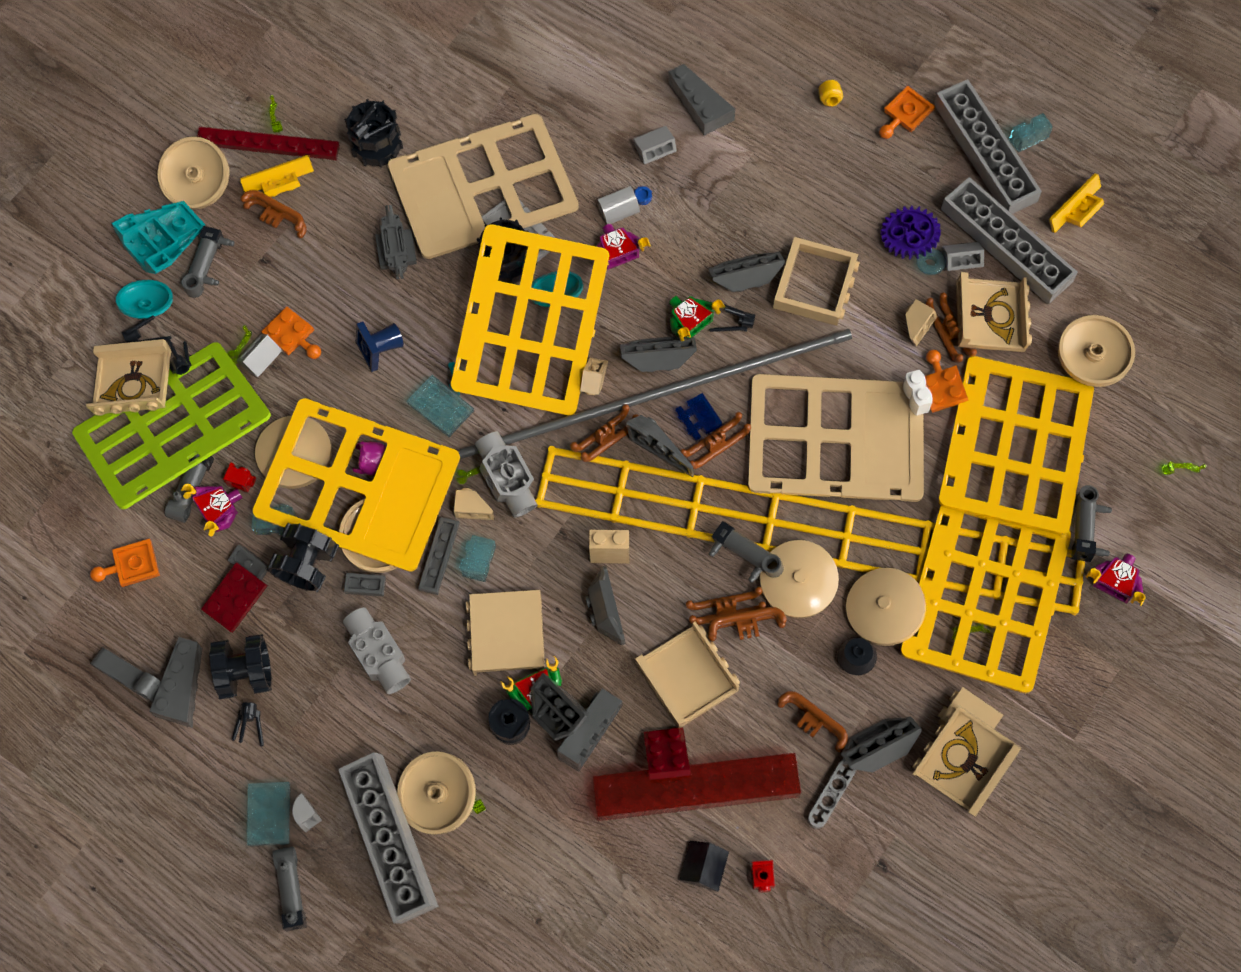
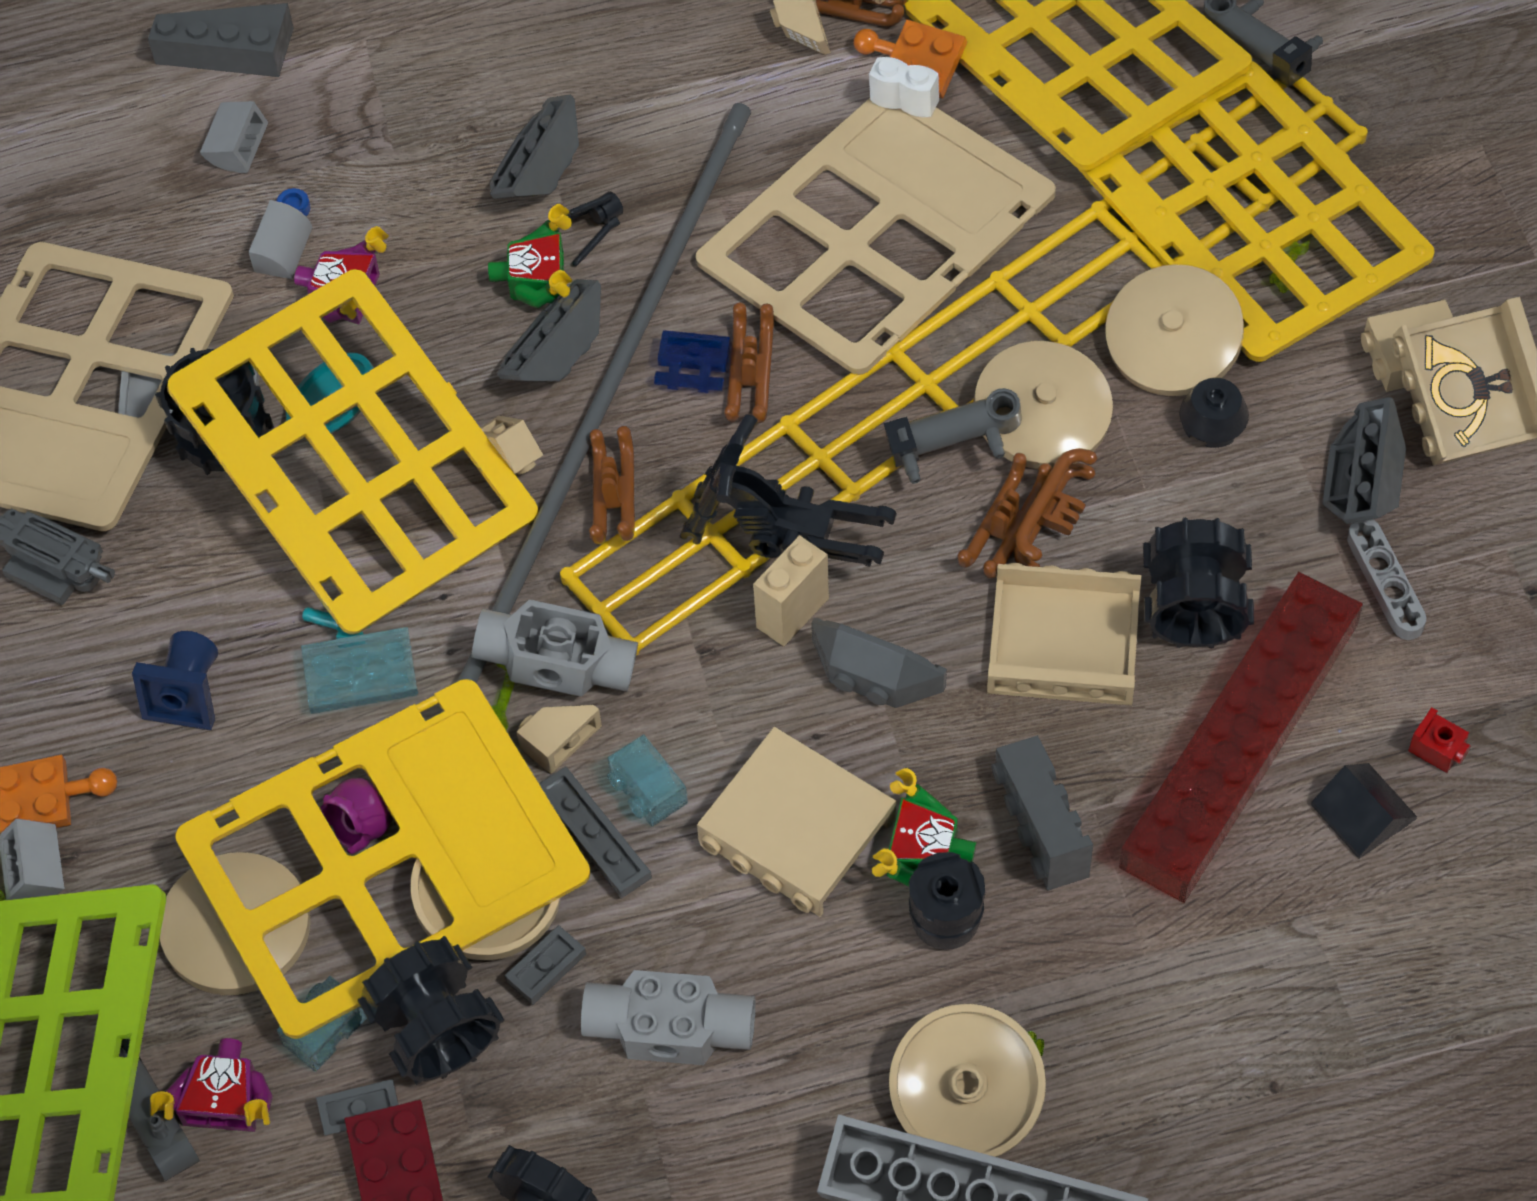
camera: 50 degrees left, 10 degrees down
(239, 478) = (206, 1025): red brick -> none
(556, 708) = (987, 816): dark grey wedge -> none
(639, 512) = (773, 515): none -> black piece
(650, 436) = (682, 433): dark grey wedge -> none
(666, 753) = (1165, 732): dark red plate -> none
(759, 707) = (1198, 583): none -> black piece
(807, 310) = (651, 136): tan window -> none
(814, 718) = (1270, 515): dark orange piece -> none
(1119, 579) = (1365, 55): torso -> none

